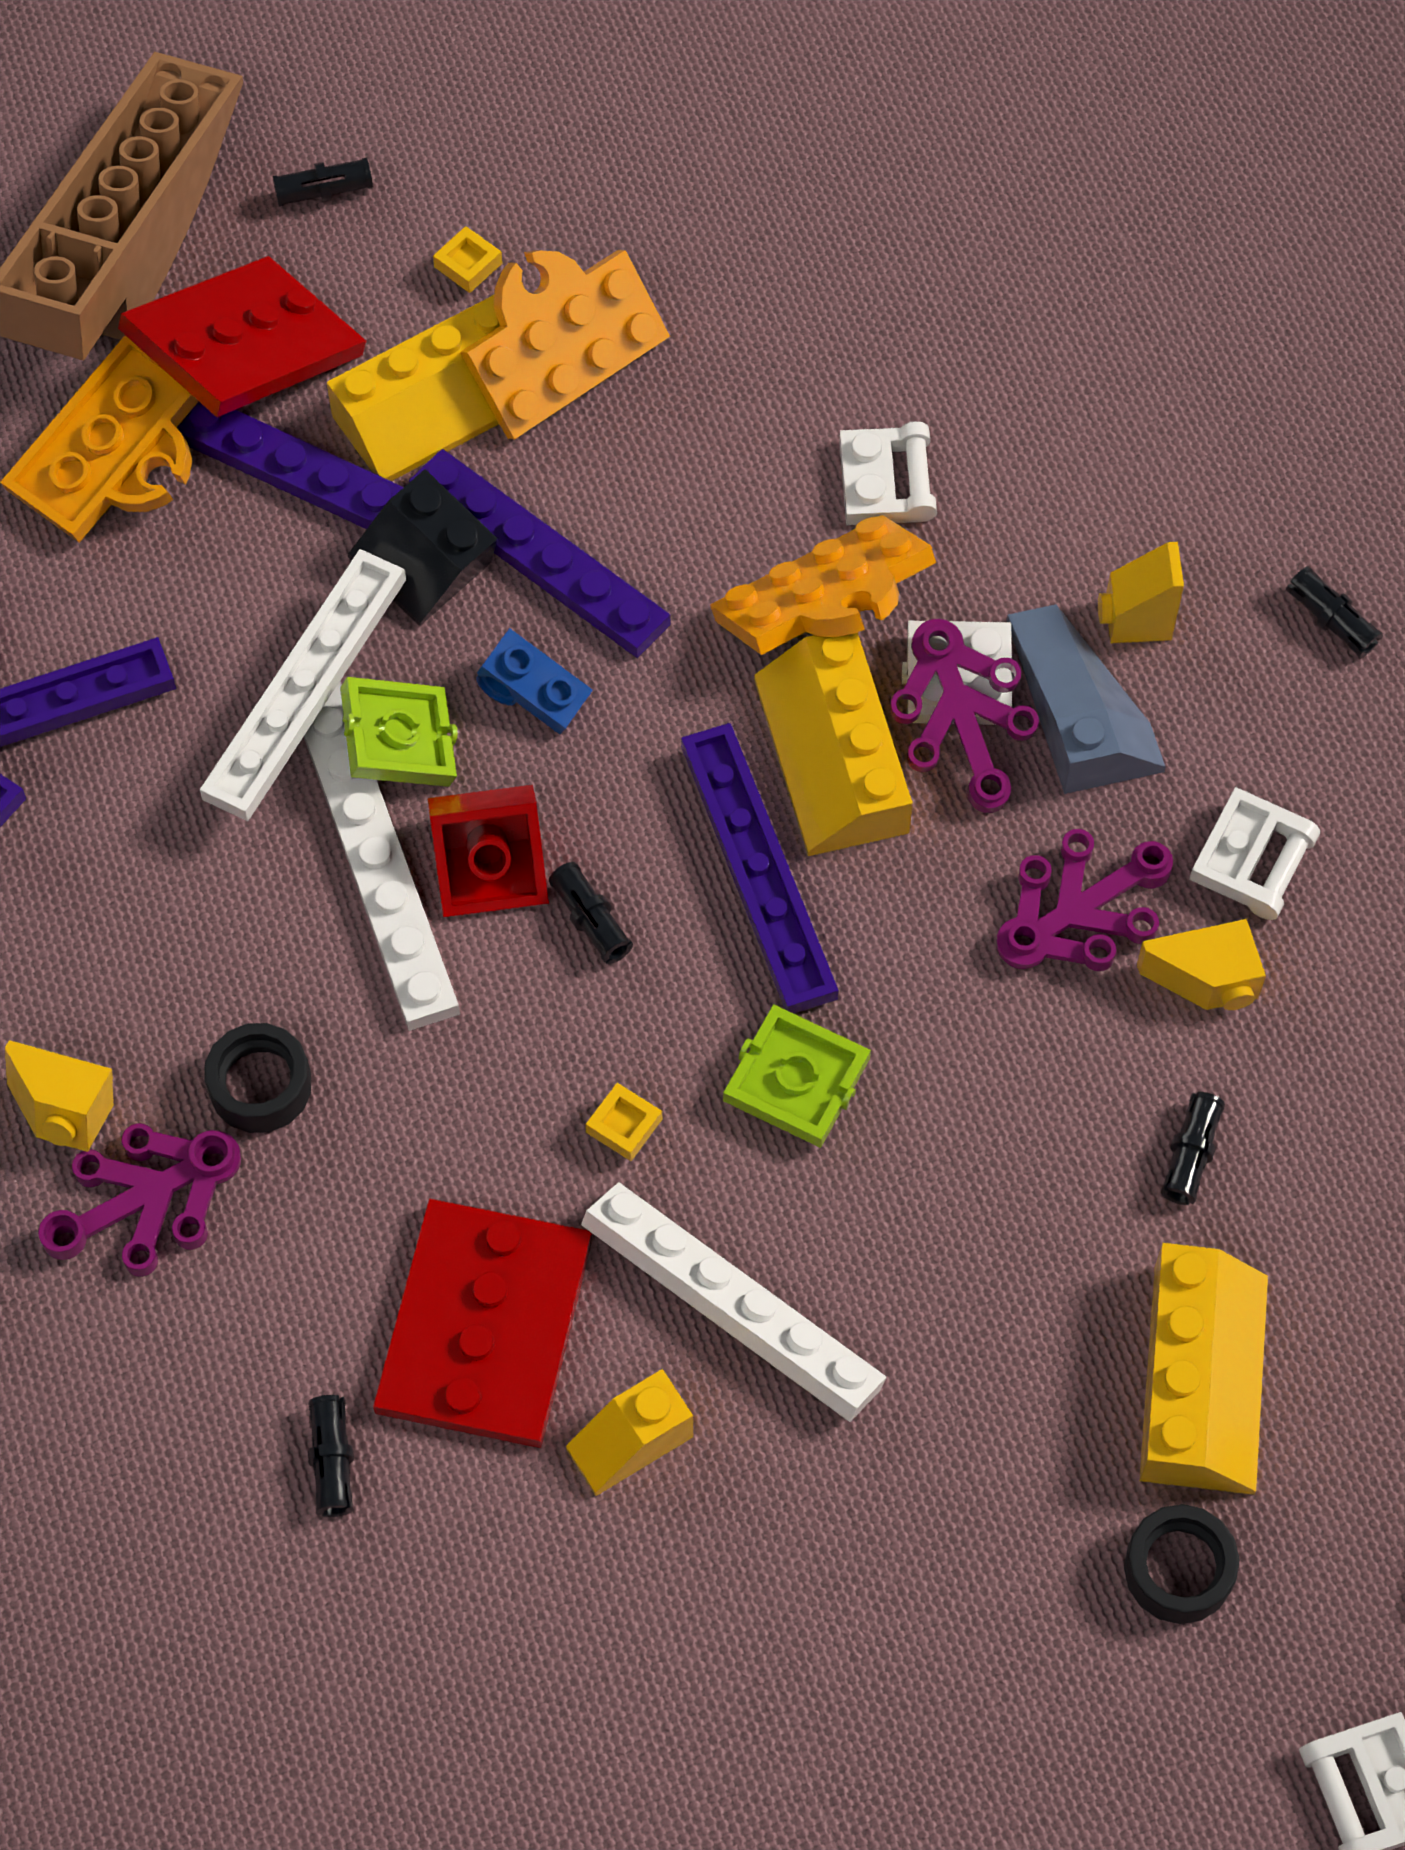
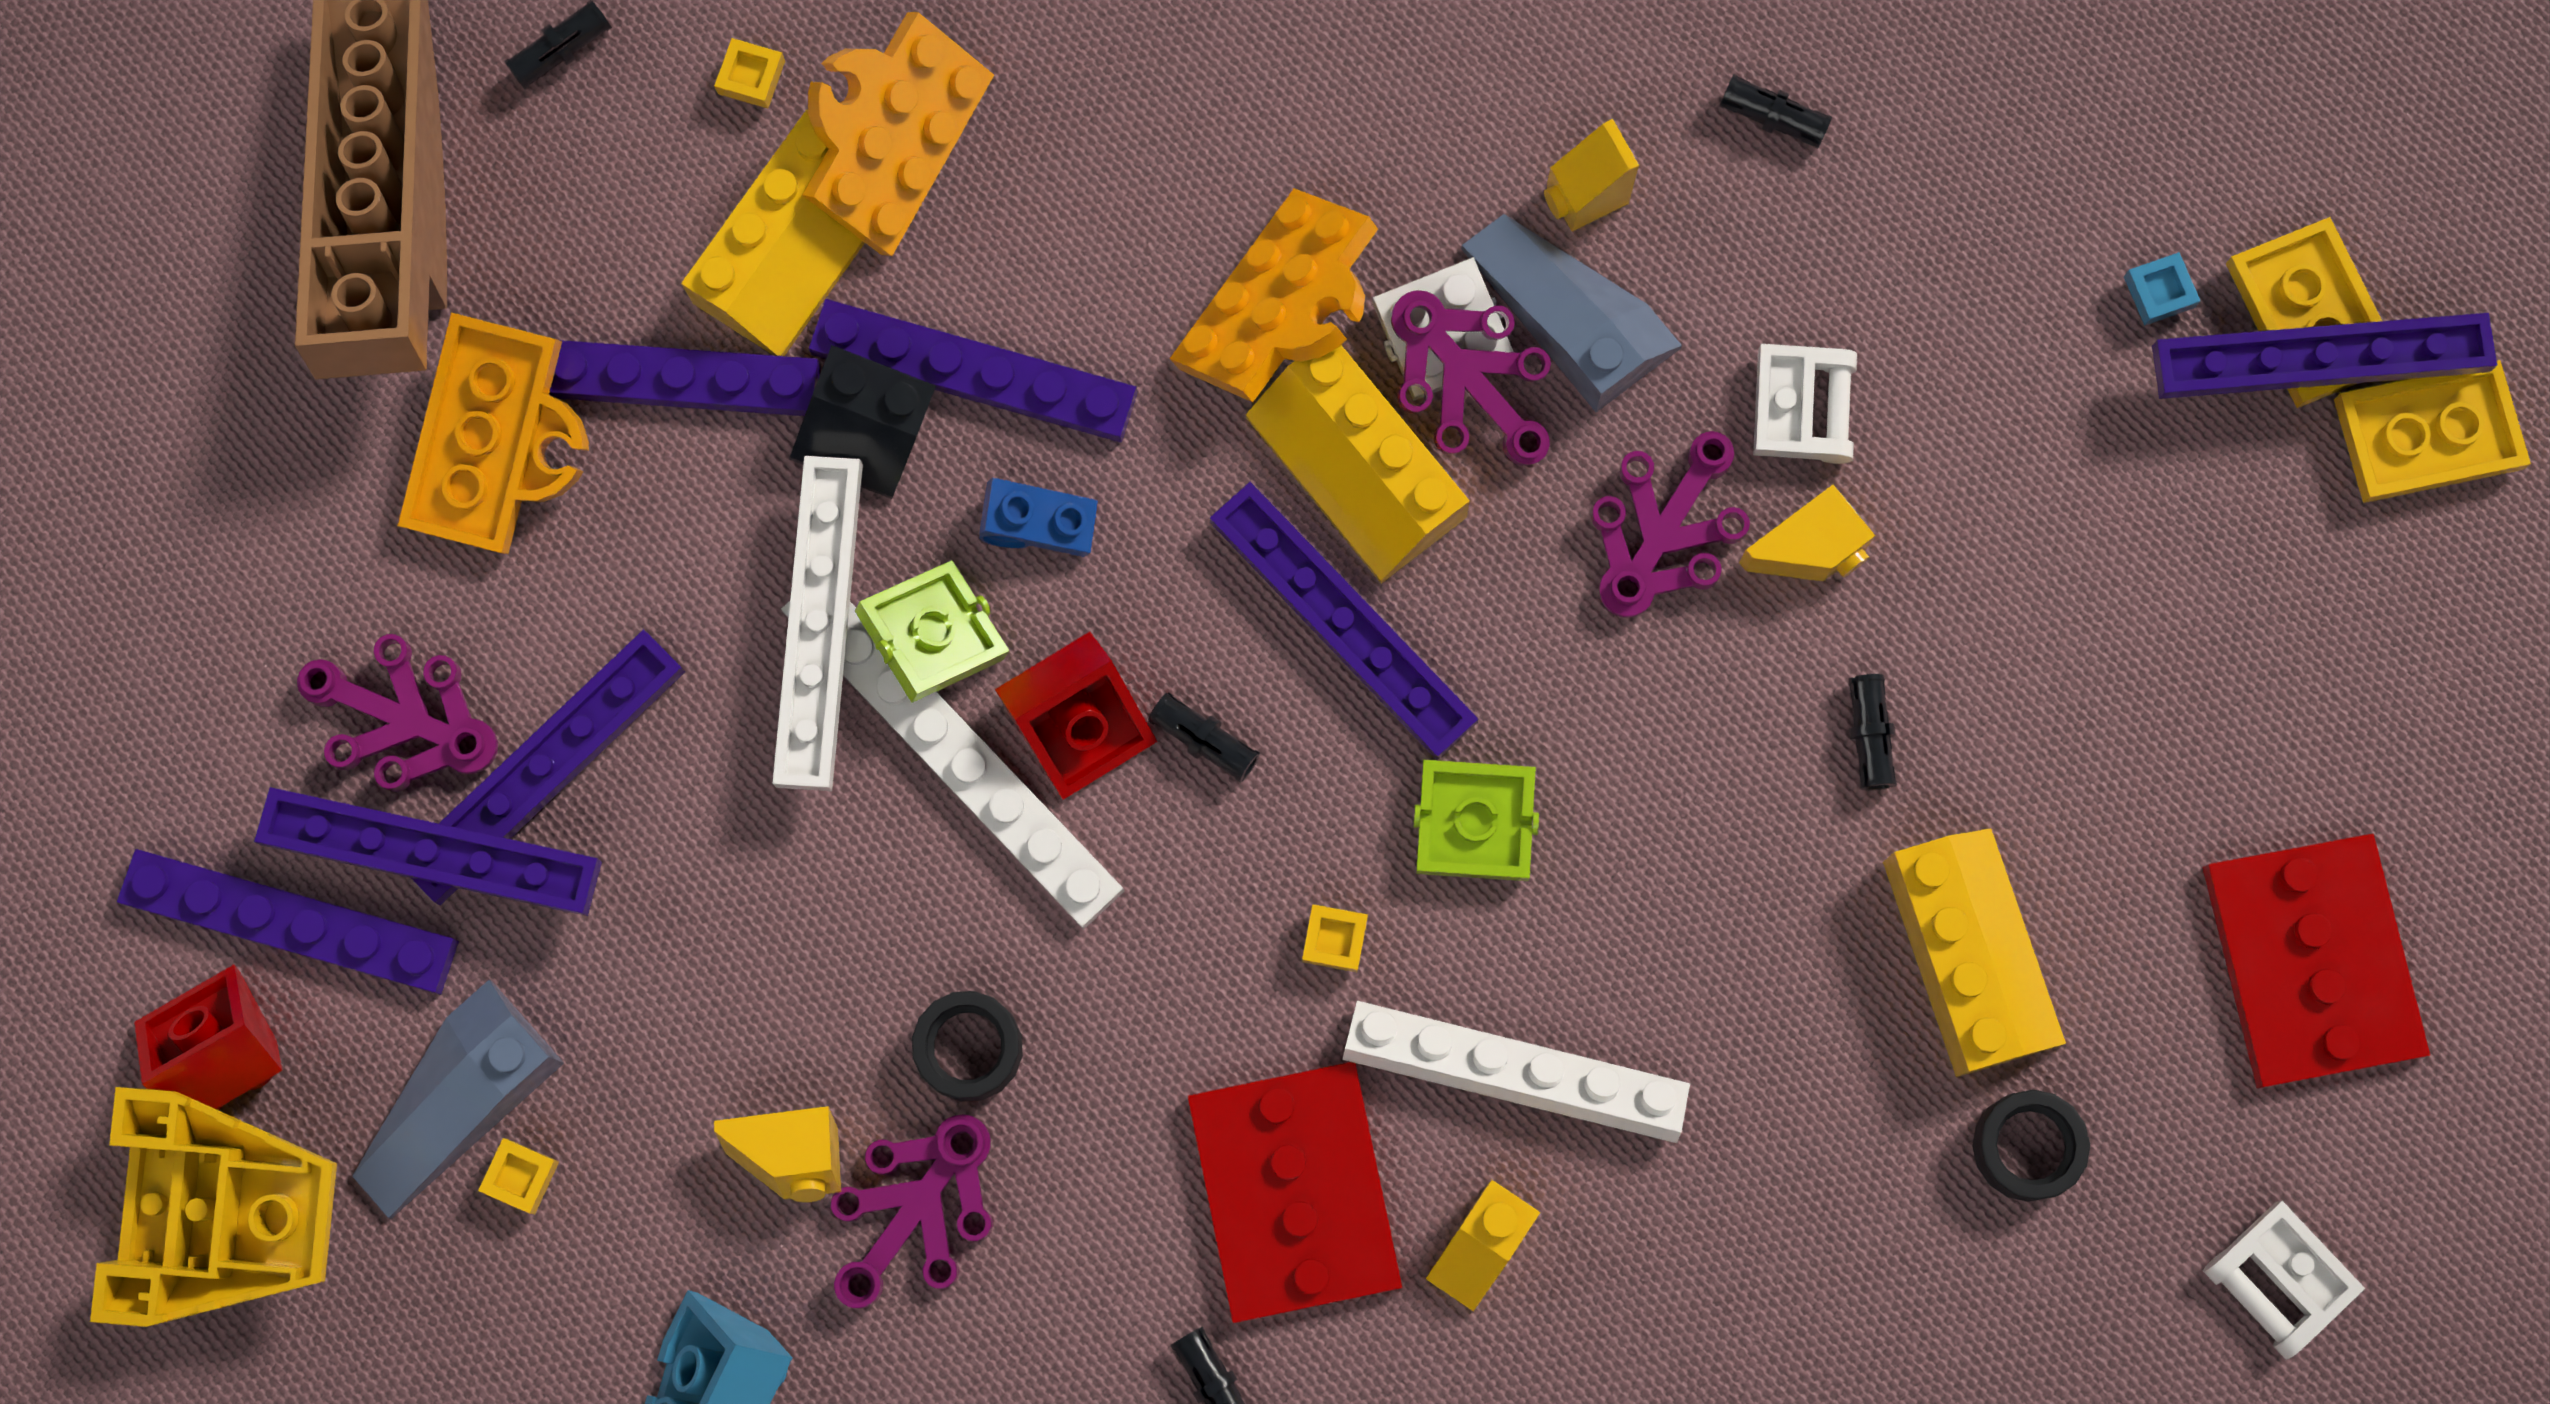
camera: 20 degrees left, 15 degrees up
(242, 335) = (566, 263): red plate -> none
(870, 474) = (1262, 148): white plate -> none

